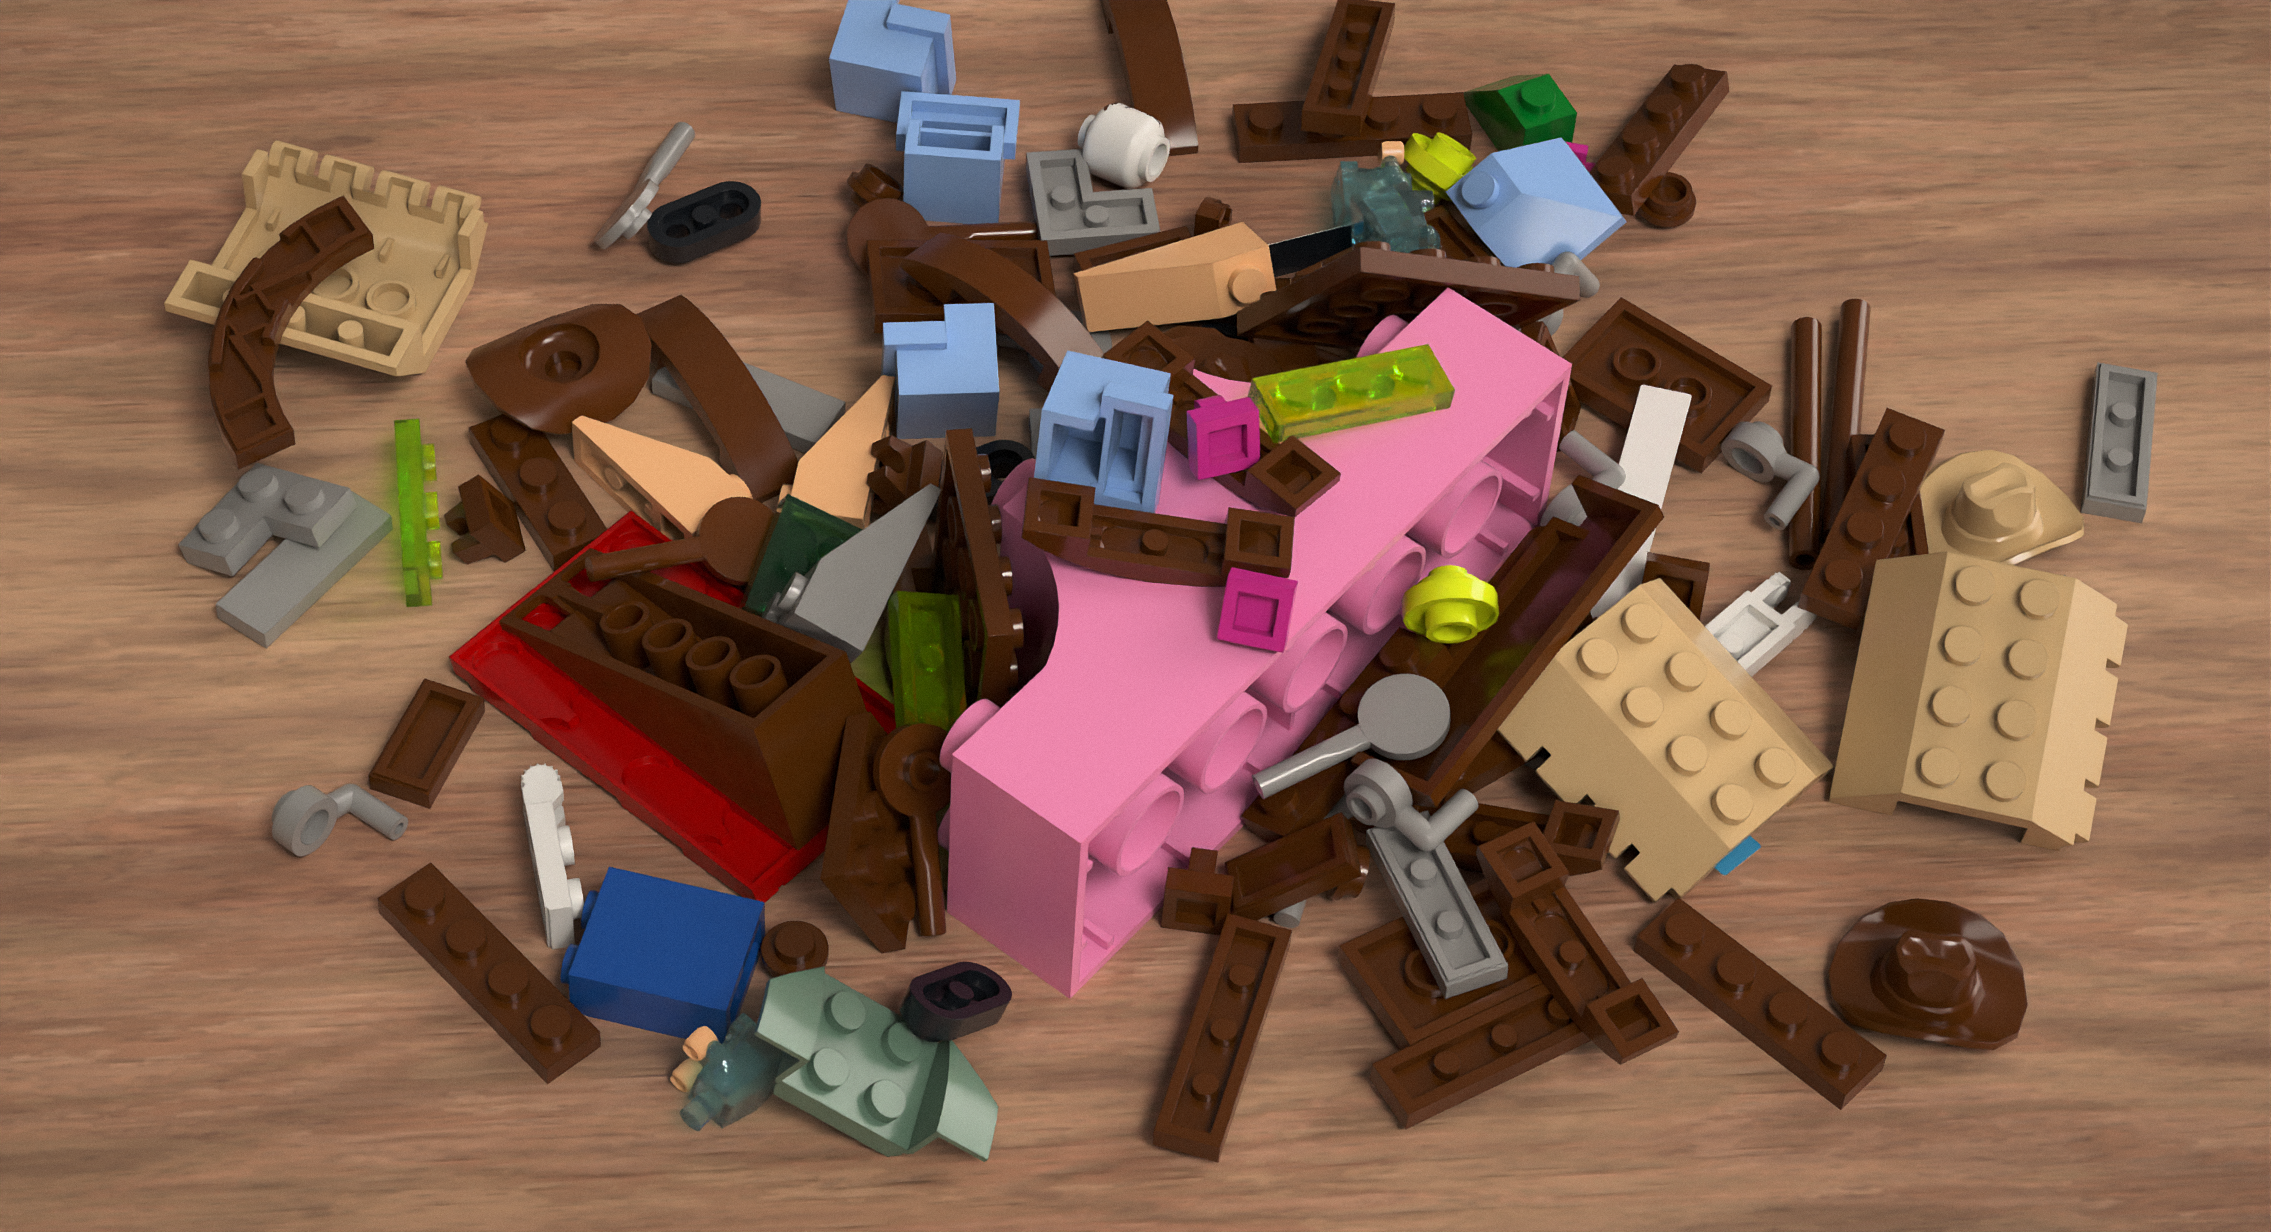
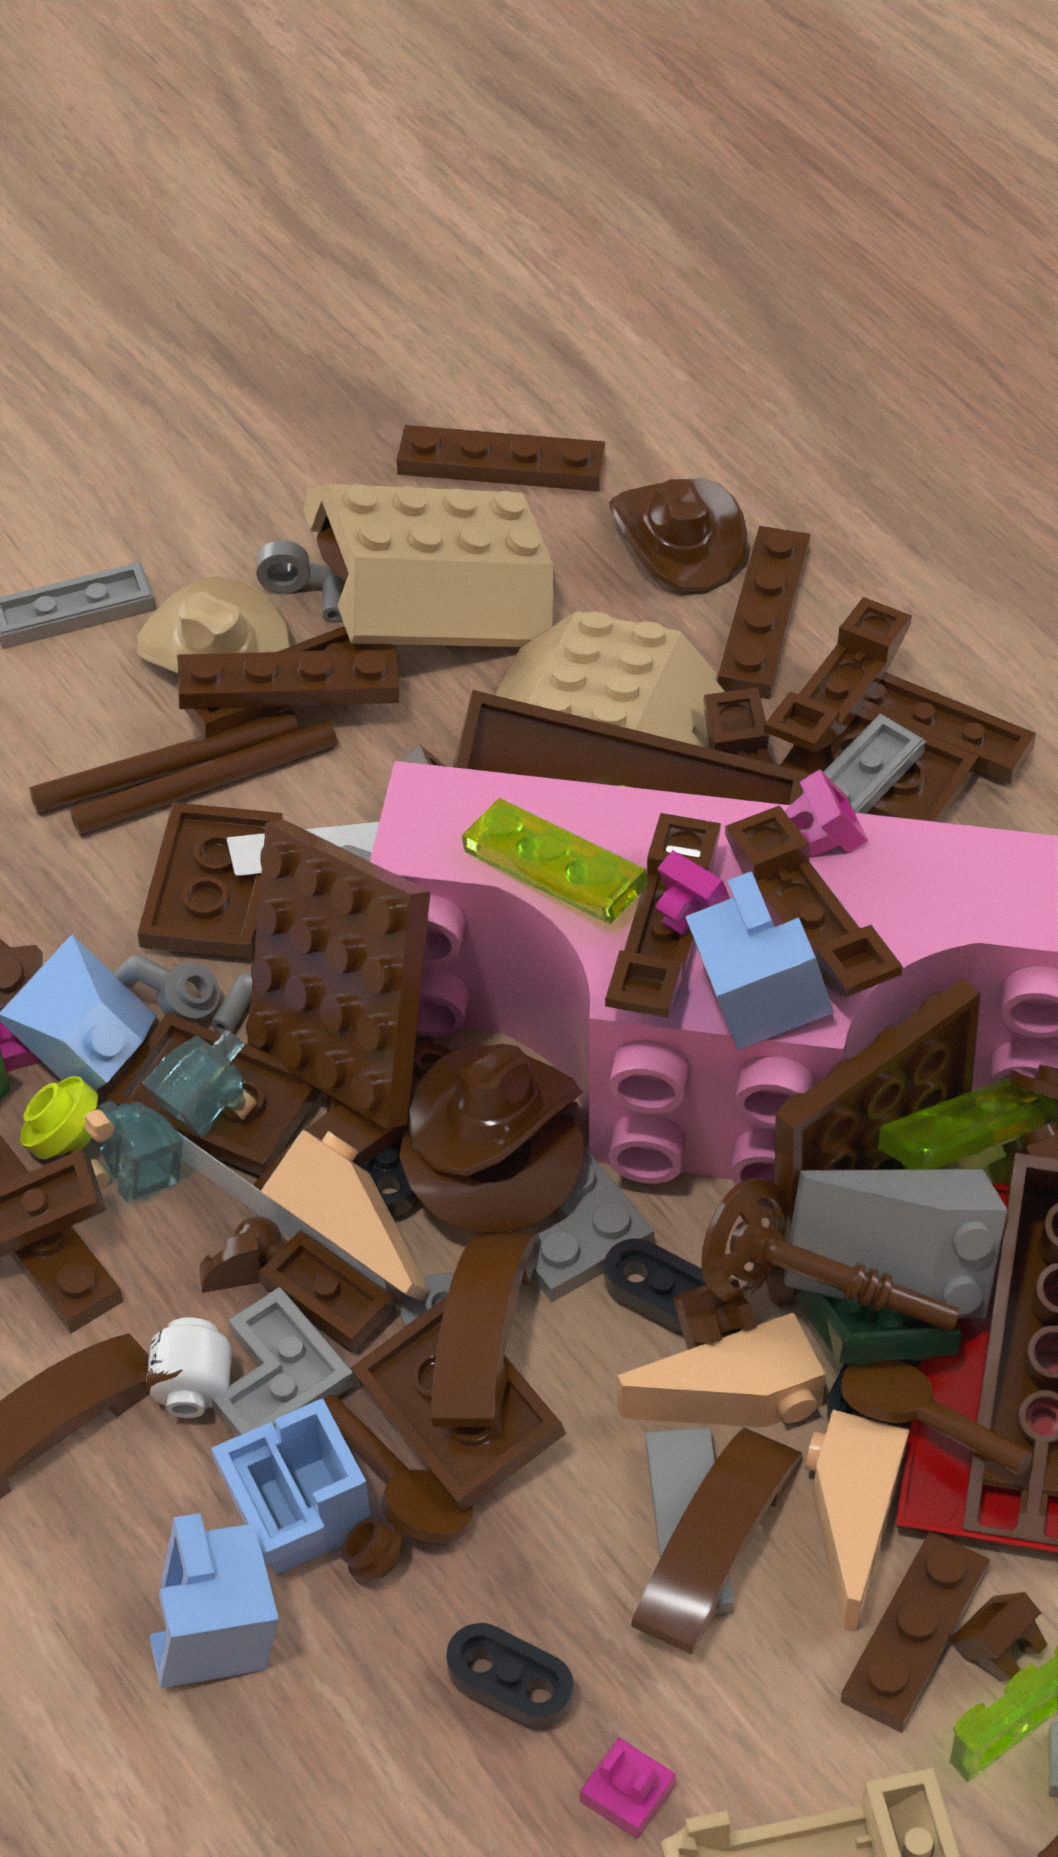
camera: 115 degrees left, 0 degrees up
(562, 253) = (627, 1788): none -> dark pink tile
(565, 368) = (793, 1667): reddish brown hat -> none
(633, 212) = (550, 1737): light grey piece -> none
(910, 470) = (767, 1248): none -> reddish brown dish
(944, 372) = (581, 1339): light blue plate -> none
(1754, 629) = (416, 723): white hinge -> none
(1760, 455) = (247, 785): light grey plate -> none
(2145, 891) = (501, 458): none -> reddish brown plate

